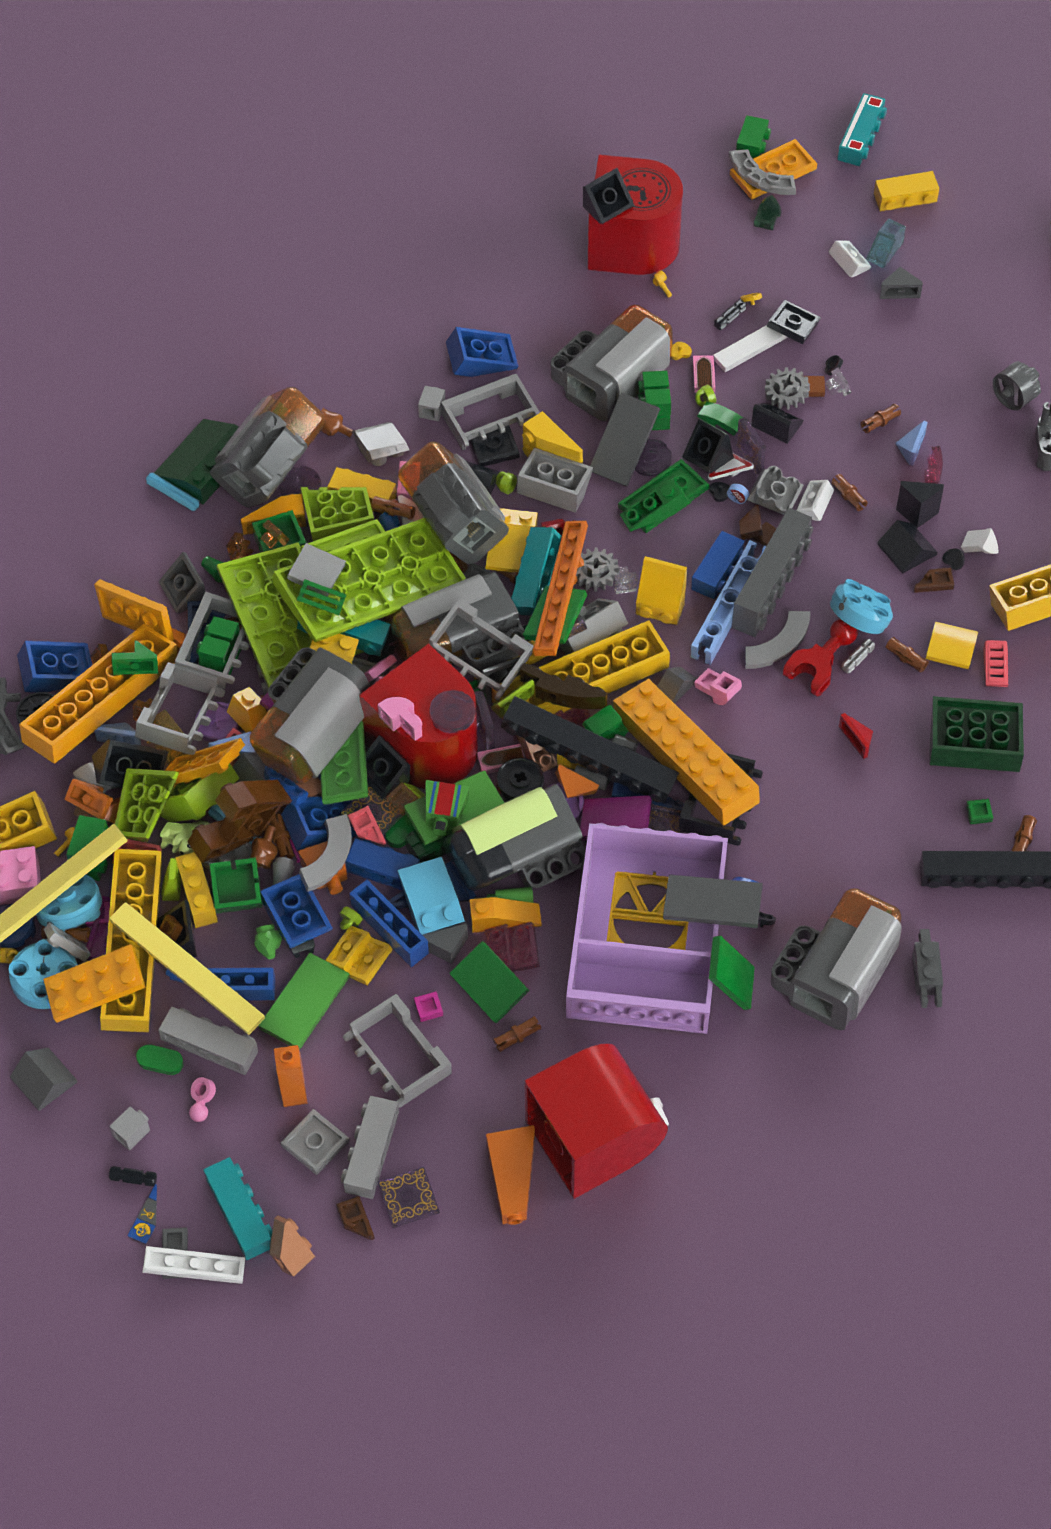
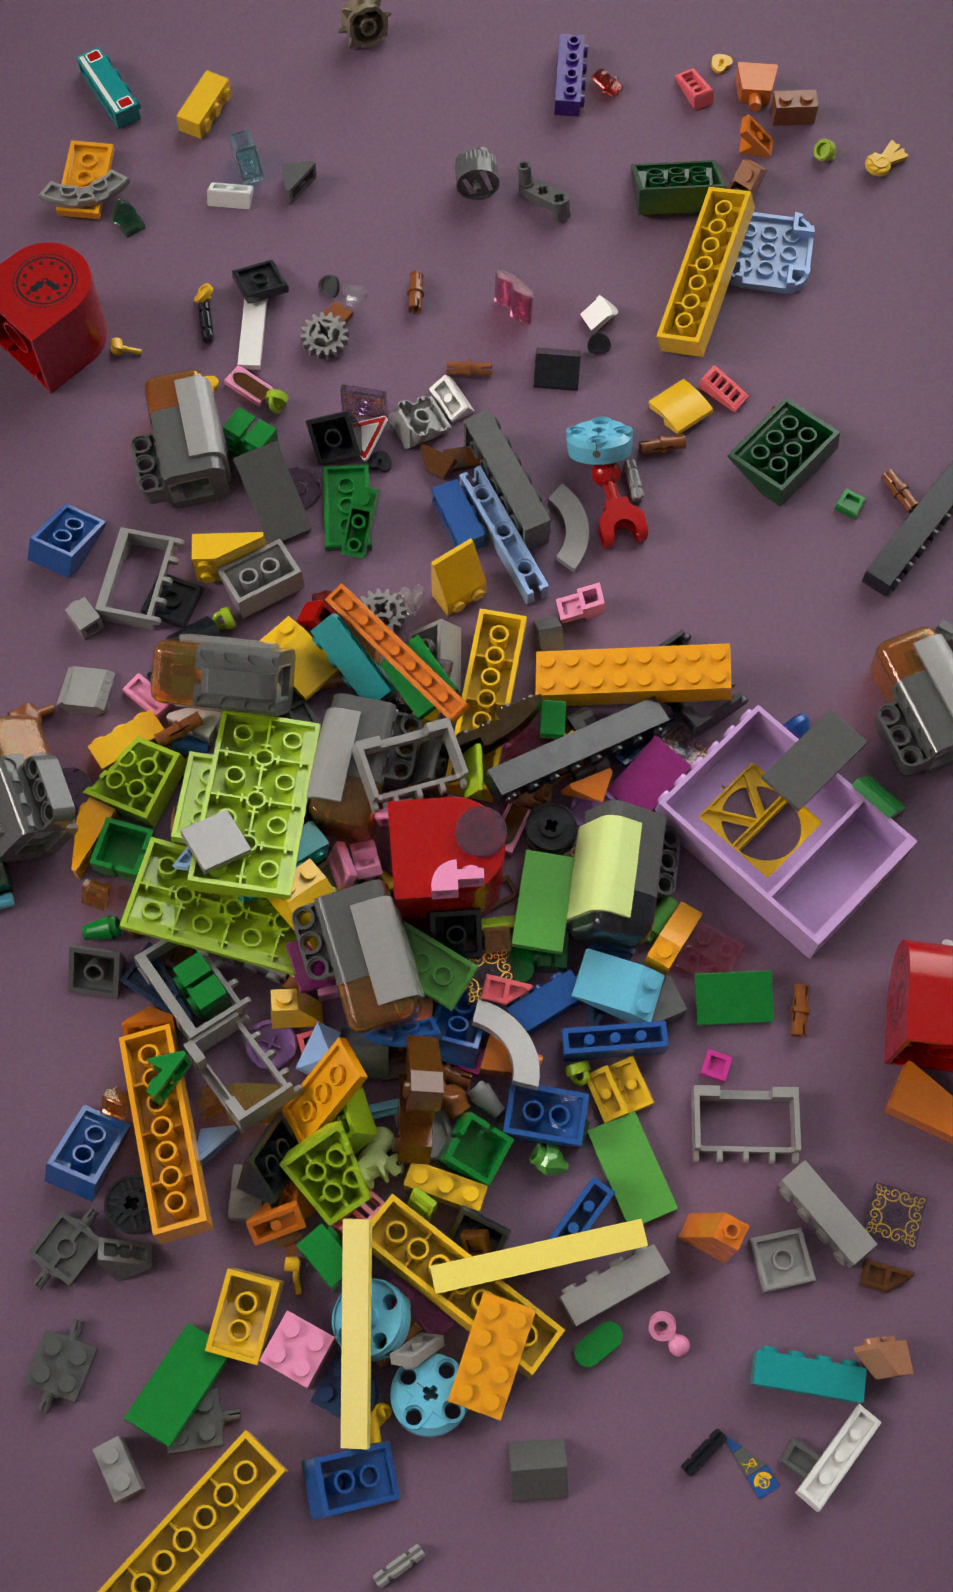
camera: 55 degrees left, 10 degrees up
(130, 1127) = (654, 1420): light grey brick -> none
(132, 609) = (95, 1038): light orange plate -> none
(273, 535) = (125, 852): clear orange tile -> none
(303, 590) = (271, 848): green tile -> none
(444, 805) = (544, 909): torso -> none
(606, 196) = (33, 312): black slope -> none
(720, 415) = (306, 405): green slope -> none
(738, 493) = (398, 449): light blue tile -> none
(753, 136) = (36, 167): green brick -> none
(775, 421) = (349, 369): black slope -> none
(857, 733) = (711, 537): red slope -> none
(911, 442) = (461, 288): light blue slope -> none
(919, 501) = (527, 326): black slope -> none
(936, 580) = (607, 371): reddish brown tile -> none

